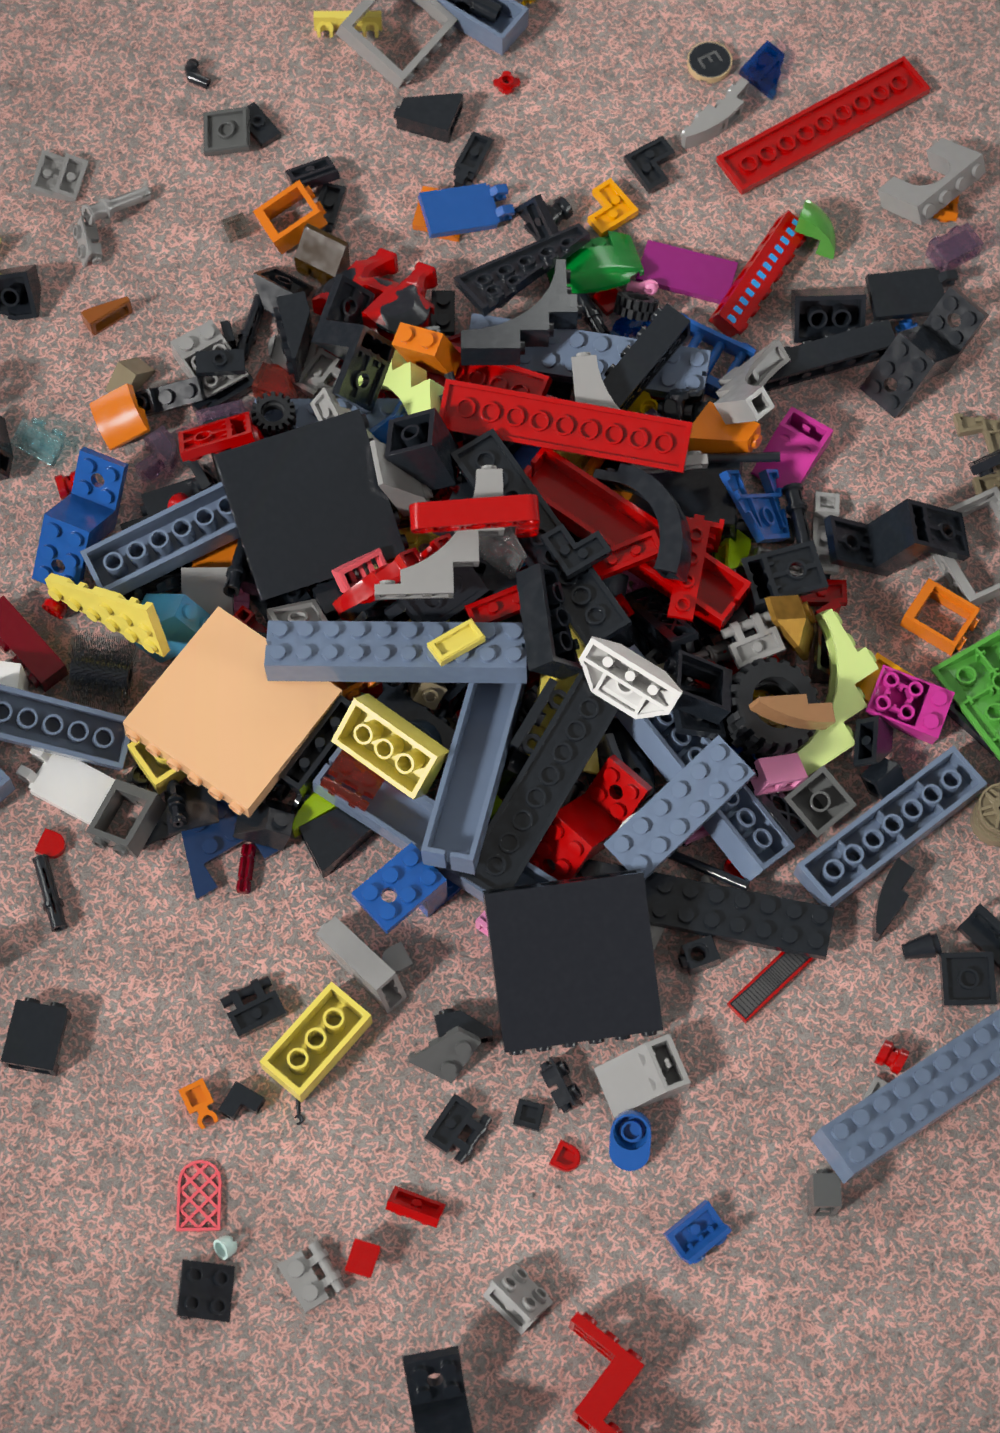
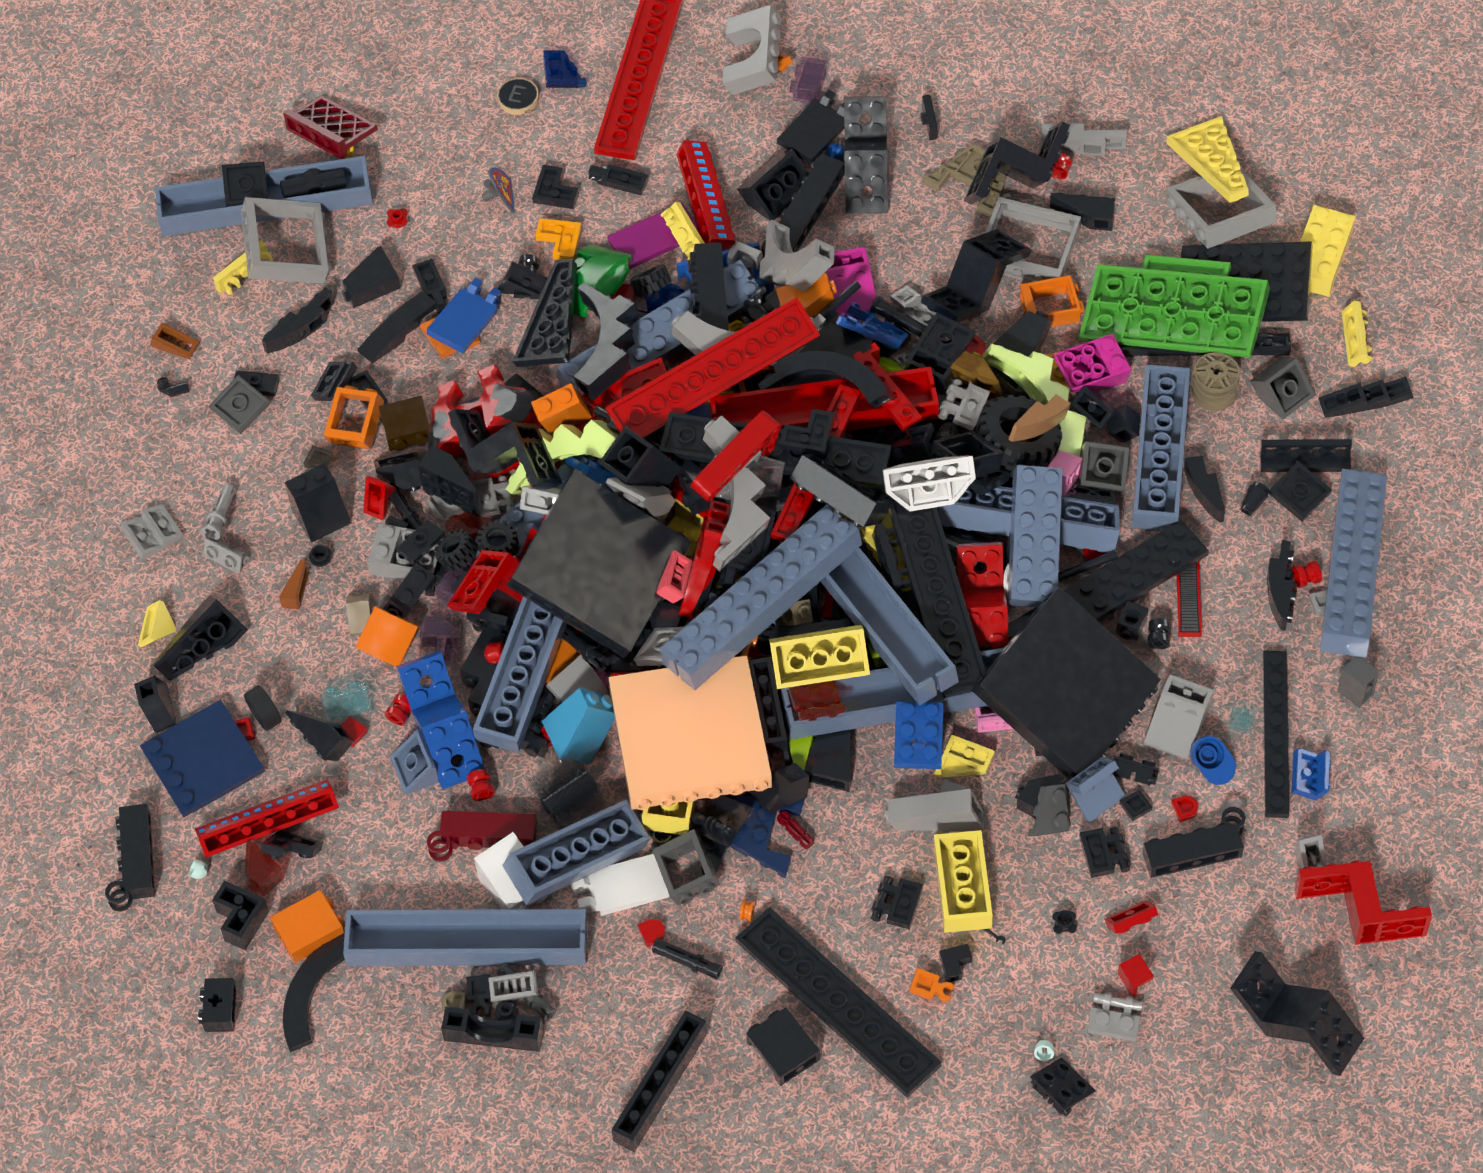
camera: 40 degrees left, 10 degrees down
(21, 469) = (354, 729): none -> red tile
(26, 540) = (414, 764): none -> sand blue slope
(117, 1045) = (838, 1002): none -> black plate
(128, 617) = (547, 738): light yellow wing -> none
(135, 898) = (747, 910): none -> orange bush
(151, 300) = (320, 550): none -> black plate
(179, 1228) = (1013, 1058): coral window -> none
(187, 261) = (317, 502): none -> black slope
(231, 24) = (165, 345): none -> dark orange slope
(238, 393) = (456, 550): none -> black tyre
(239, 293) = (377, 497): none -> red slope
(329, 105) = (294, 327): none -> black slope
(361, 1148) = (1067, 916): none -> black plate
(406, 171) = (396, 326): none -> black slope
(436, 939) = (964, 759): none -> light yellow wing
(456, 642) = (799, 551): light yellow tile -> none
(505, 1070) = (1096, 788): none -> sand blue bracket
(517, 1298) = (1250, 909): light grey bracket -> none
(531, 1202) = (1196, 848): none -> black hinge
(609, 125) = (499, 185): none -> shield
(614, 1309) = (1310, 851): none -> light grey slope
(647, 287) = (642, 264): bright pink arm -> none
(696, 1129) = (1242, 720): none -> clear light blue tile
(707, 289) = (682, 228): none -> light yellow plate
(709, 988) = (1159, 632): none -> black wheel
(710, 1169) = (1275, 734): none -> black plate
(711, 200) = (619, 178): none -> black hinge
(714, 120) = (564, 125): light grey slope -> none
(729, 349) = (749, 256): none -> light grey bracket
(816, 224) = (710, 135): bright green brick -> none
(851, 1049) = (1280, 587): none -> black slope
(879, 628) = (1026, 334): none -> black slope

